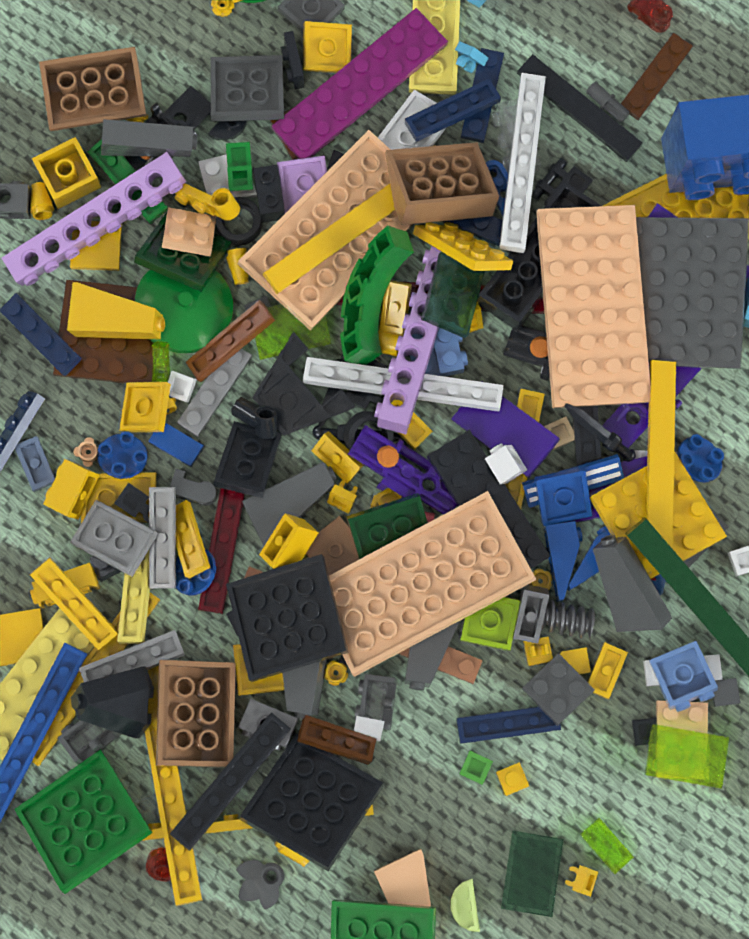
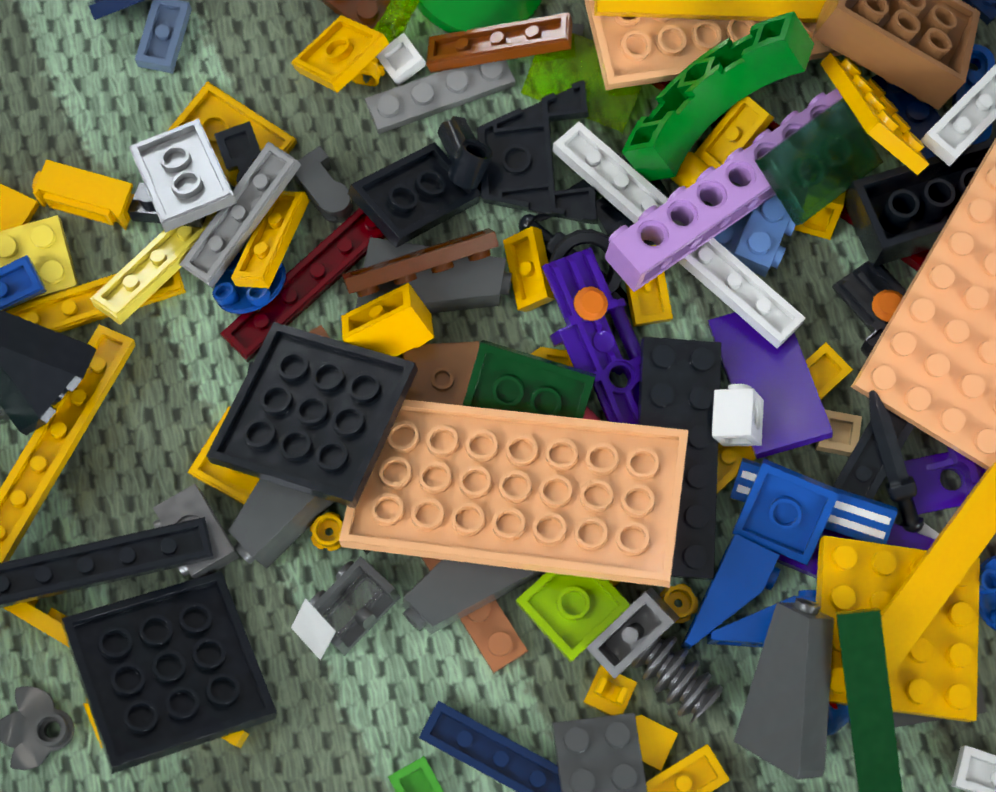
camera: 40 degrees right, 5 degrees down
(71, 489) = (178, 87): yellow brick -> none
(74, 603) = (72, 215): yellow plate -> none
(81, 450) = (231, 54): light nougat plate -> none
(122, 455) = (271, 92): blue dish -> none
(144, 654) = (111, 338): light grey plate -> none
(177, 445) = (346, 124): blue tile -> none
(195, 713) = (108, 449): medium nougat slope -> none
(286, 490) = (404, 268): none -> reddish brown plate
(337, 740) = (264, 615): reddish brown plate -> none
(342, 498) = (497, 320): yellow tile -> none

